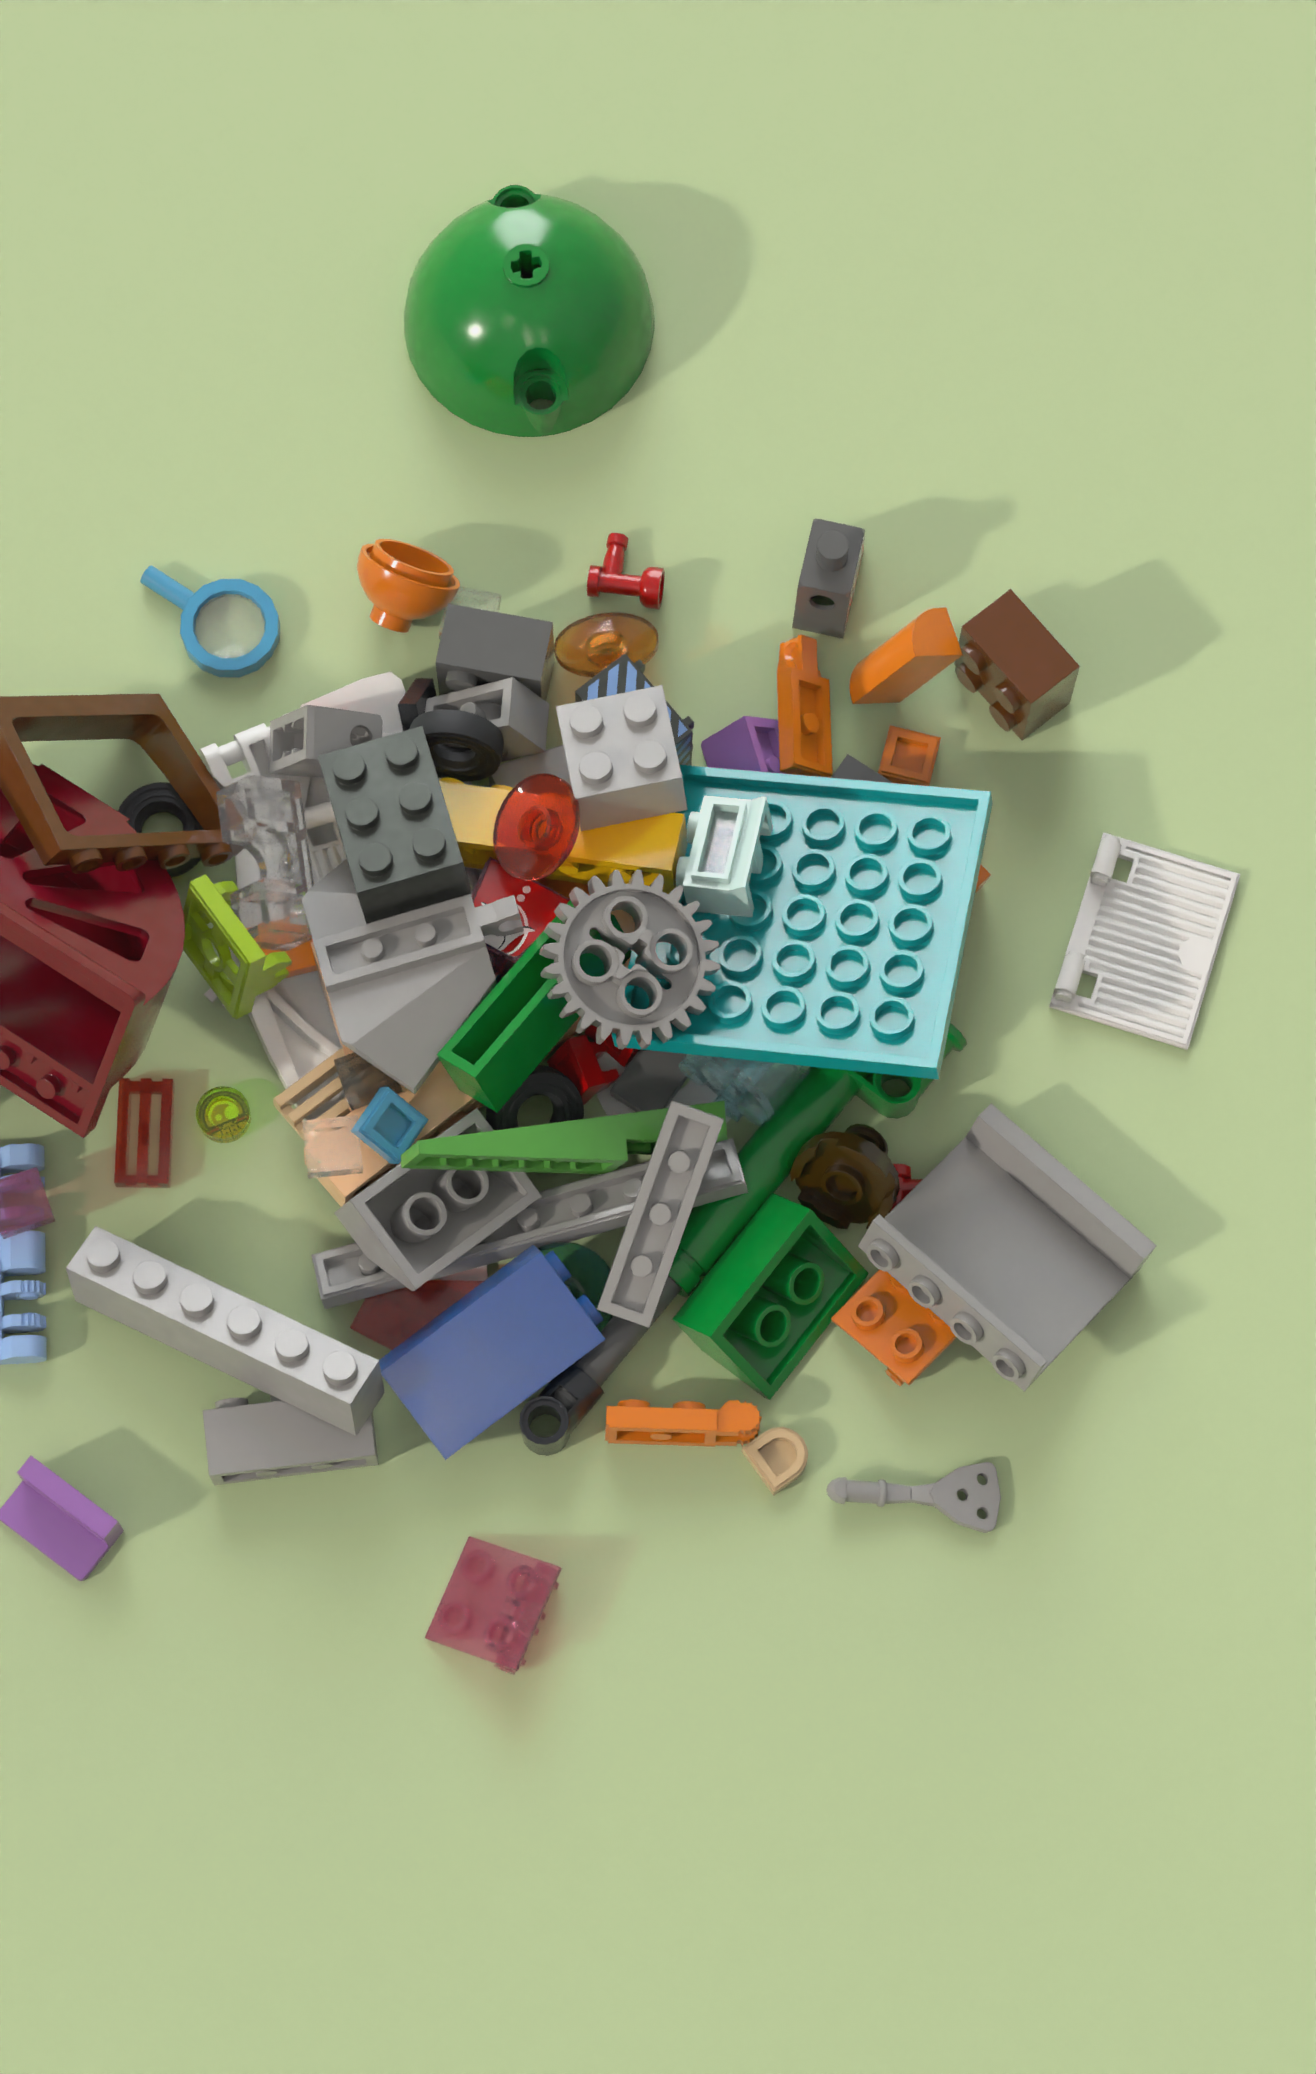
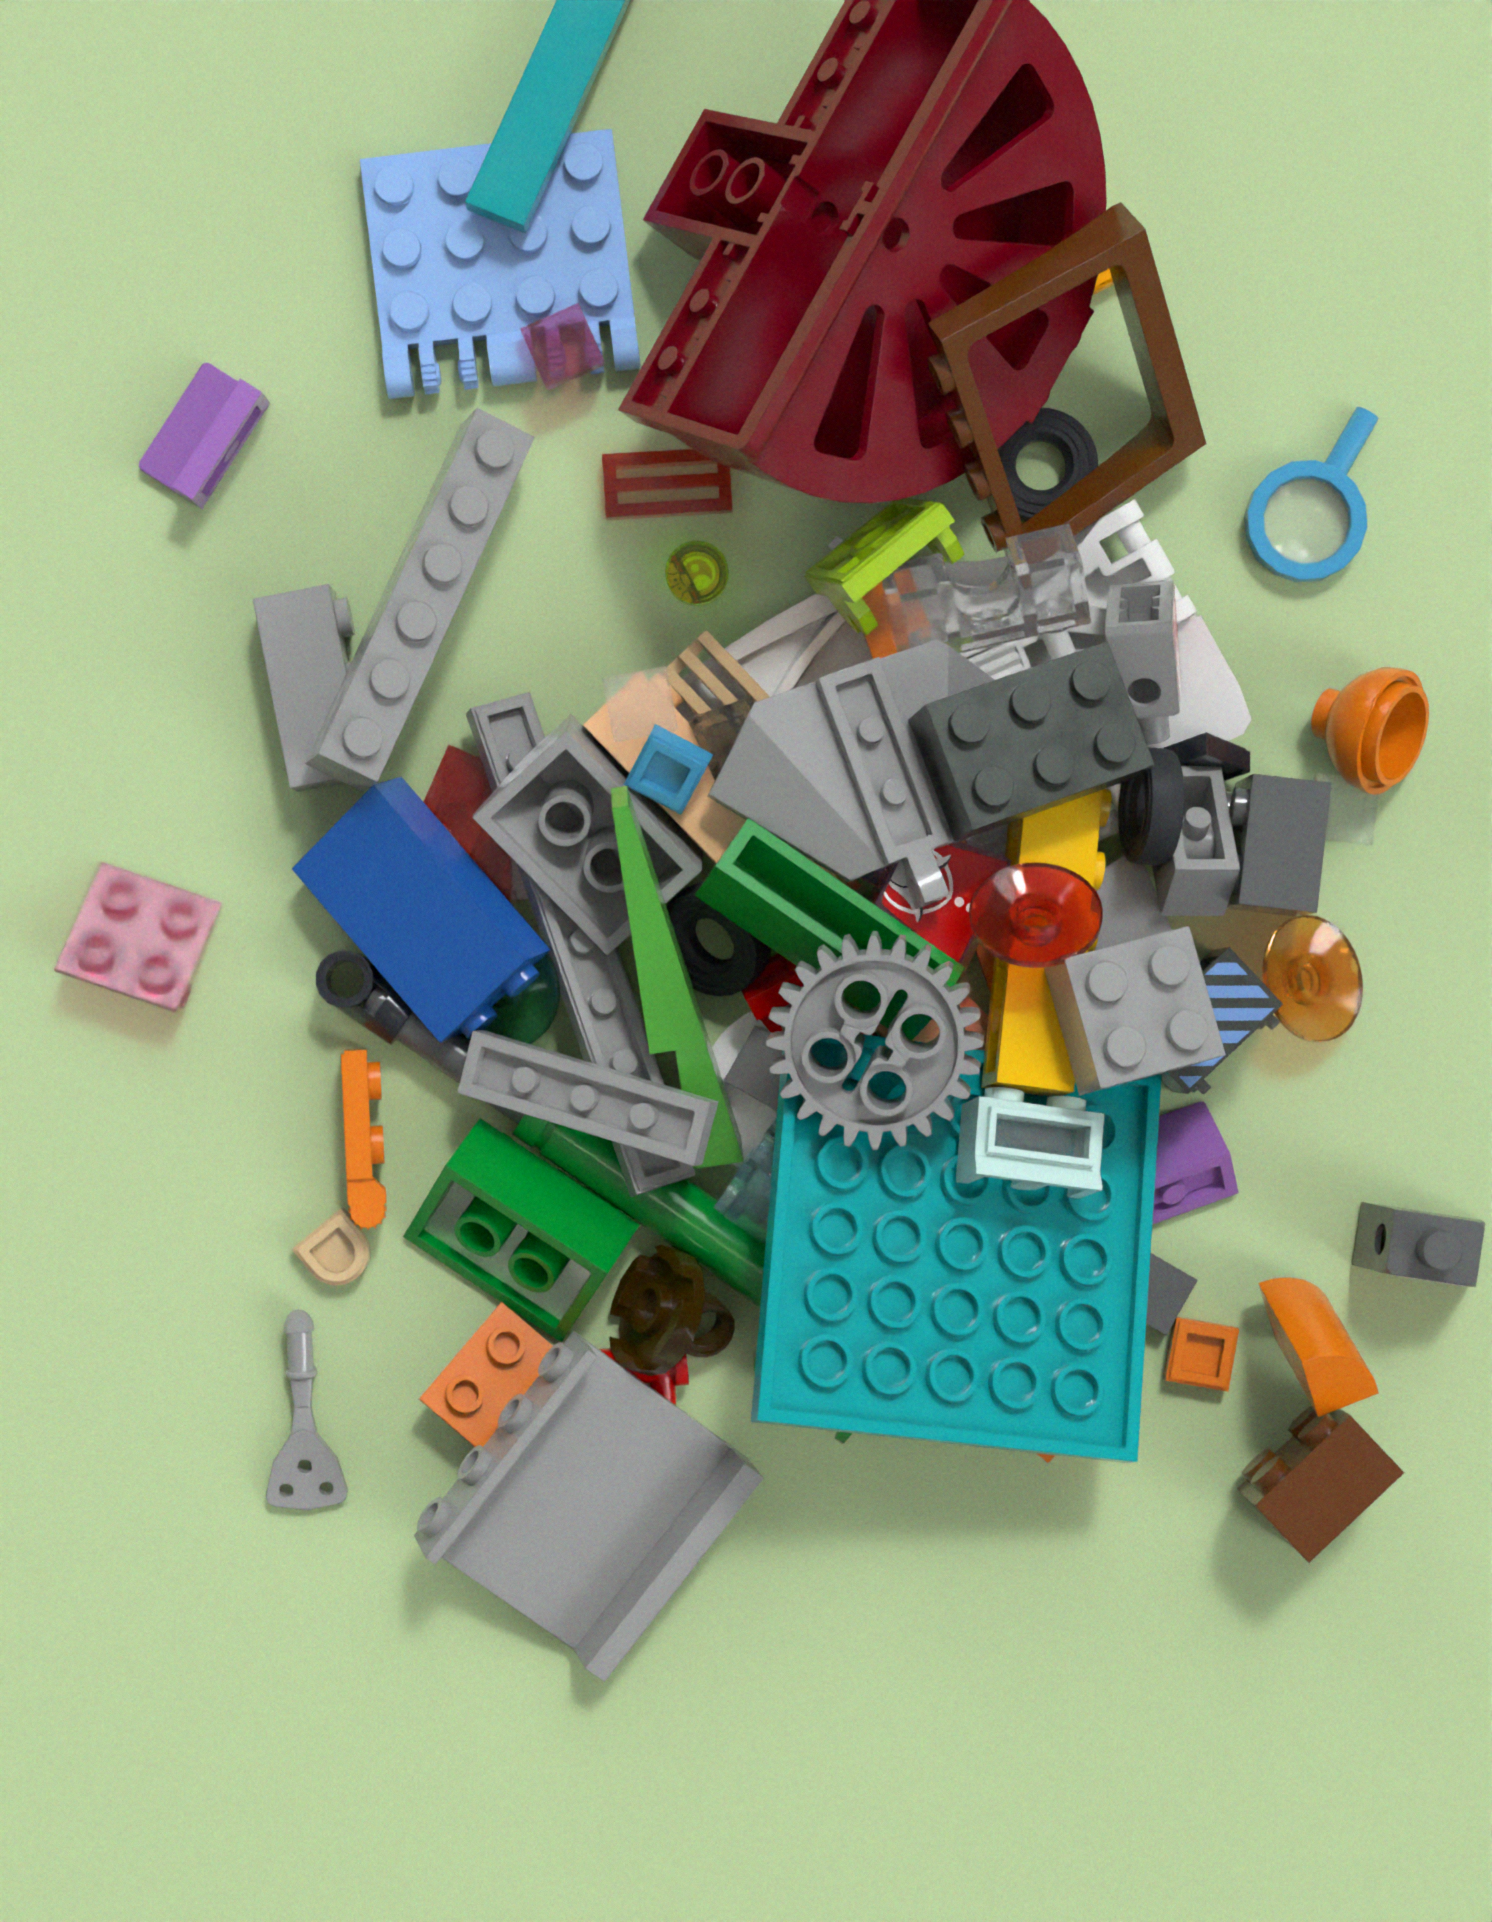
camera: 85 degrees right, 15 degrees up
(611, 580) = (1401, 977): red piece -> none
(803, 710) = (1247, 1223): orange hinge -> none
(1146, 941) = (993, 1650): white window -> none

